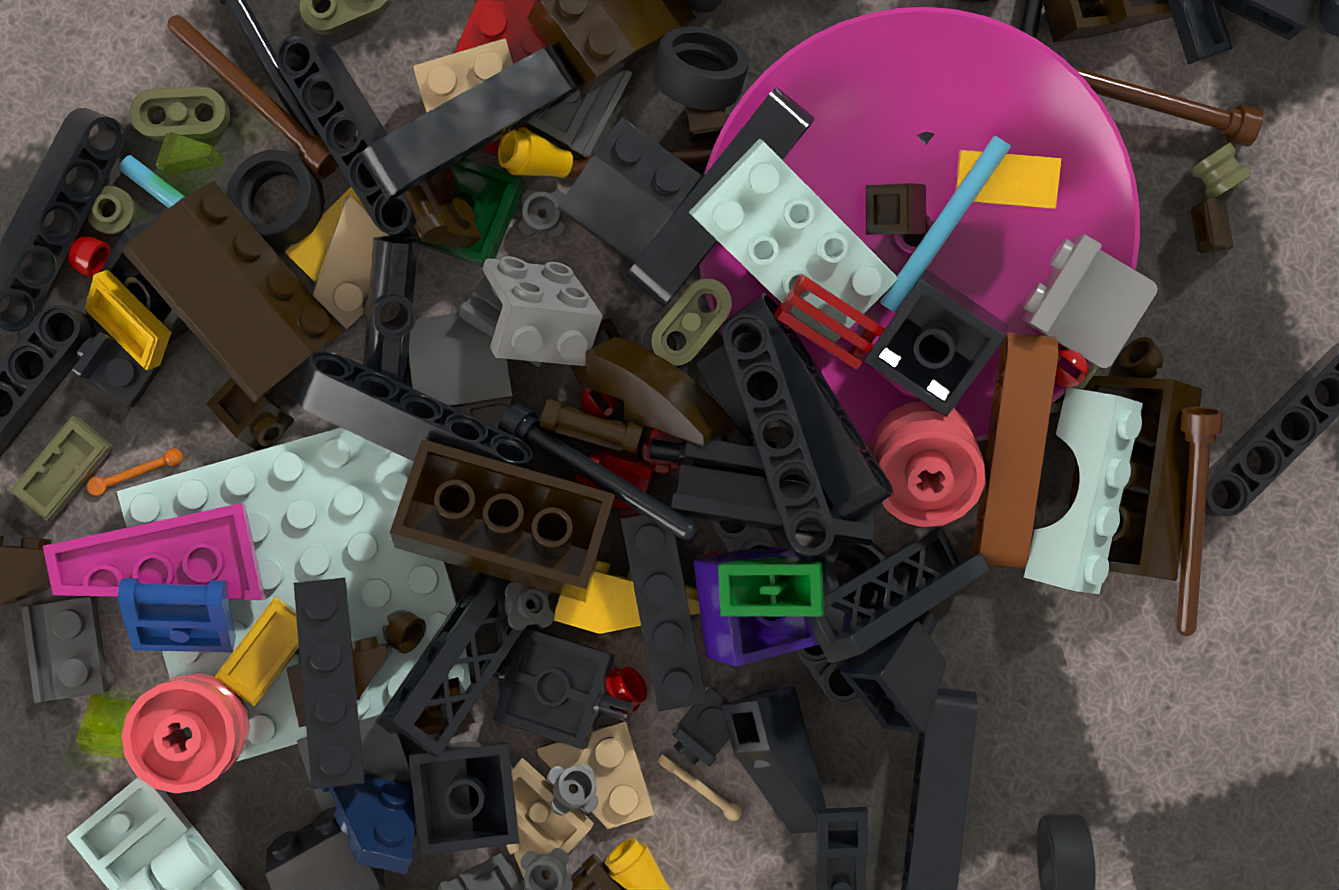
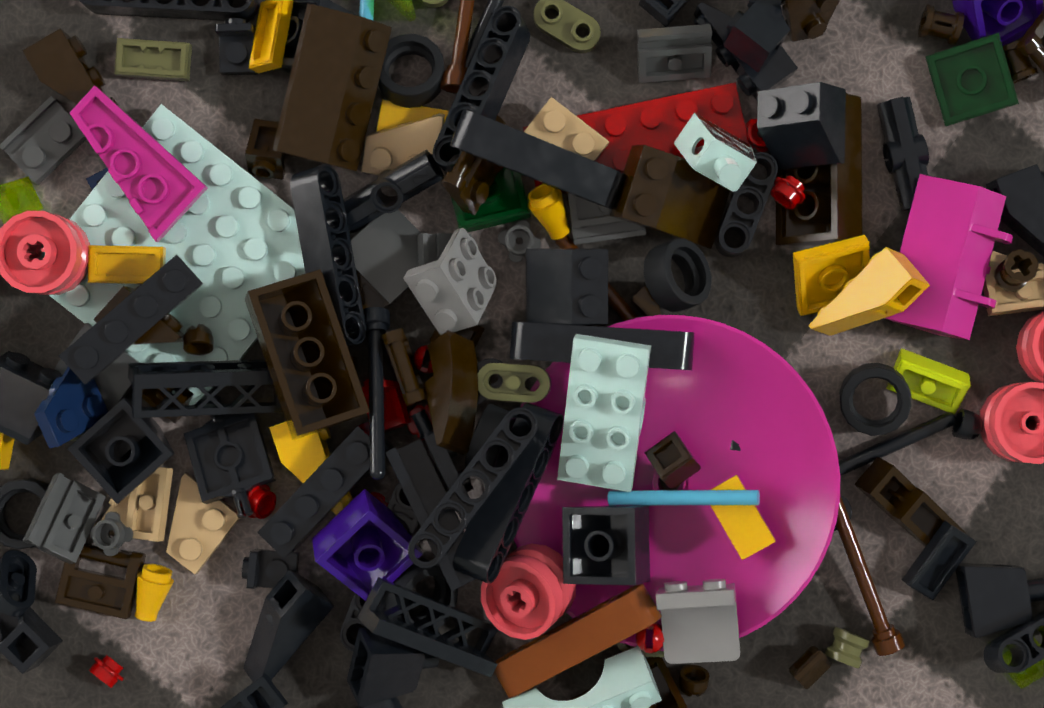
camera: 60 degrees right, 0 degrees up
(99, 485) = (159, 88): orange hinge -> none
(177, 627) = (108, 197): blue plate -> none
(517, 612) = (257, 404): dark grey plate -> none
(583, 779) = (184, 515): dark grey plate -> none
(732, 810) = (231, 621): tan hinge -> none
(771, 587) = (377, 549): green slope -> none
(861, 343) = (572, 497): red tile -> none

